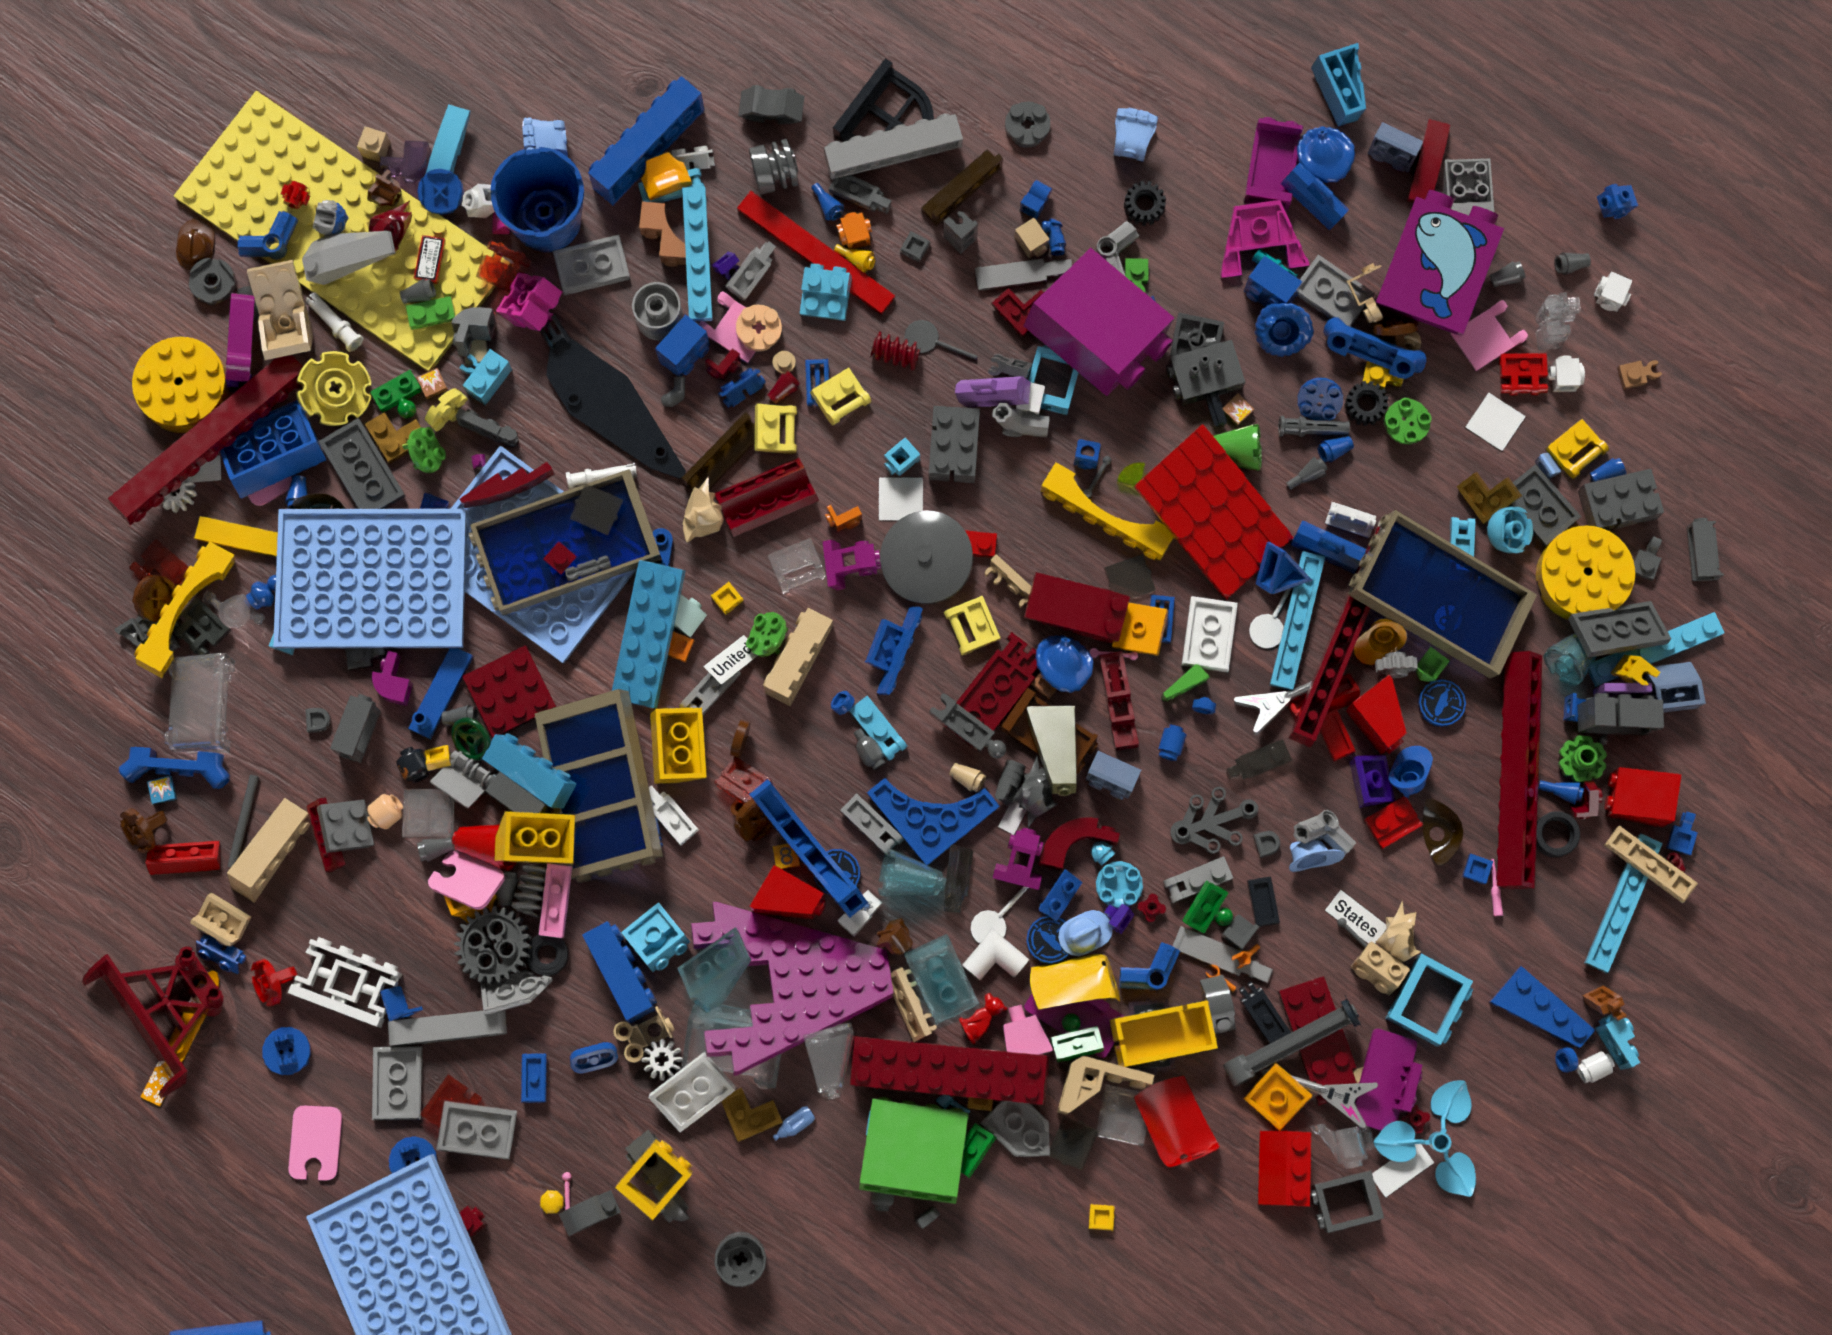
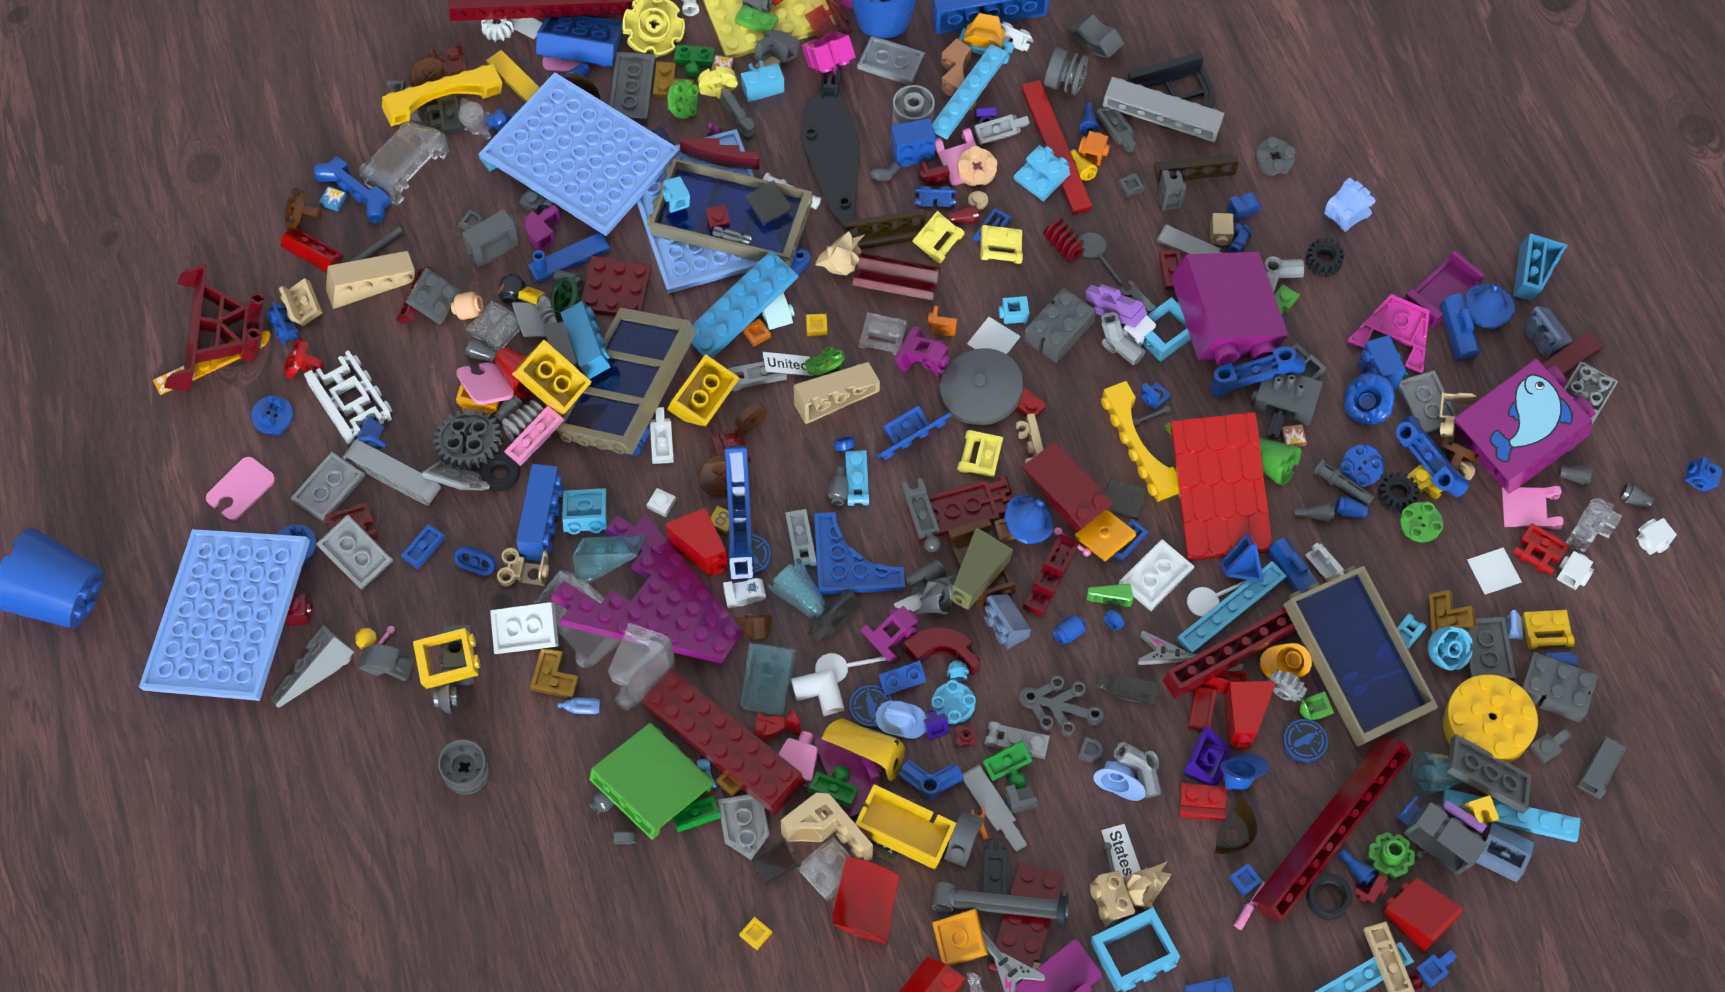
camera: 35 degrees right, 15 degrees down
(504, 564) = (676, 194): none -> medium azure brick
(528, 1253) = (324, 657): none -> light grey wedge
(656, 1053) = (521, 588): white gear -> none
(717, 878) = (661, 502): none -> white plate
(910, 1005) = (730, 679): tan plate -> none
(968, 777) = (897, 553): tan cone -> none
(1167, 371) = (1281, 362): none -> blue plate
(1244, 956) = (1010, 817): orange hand -> none
(1263, 901) = (1056, 790): black tile -> none
(1636, 375) = (1634, 607): medium nougat plate -> none

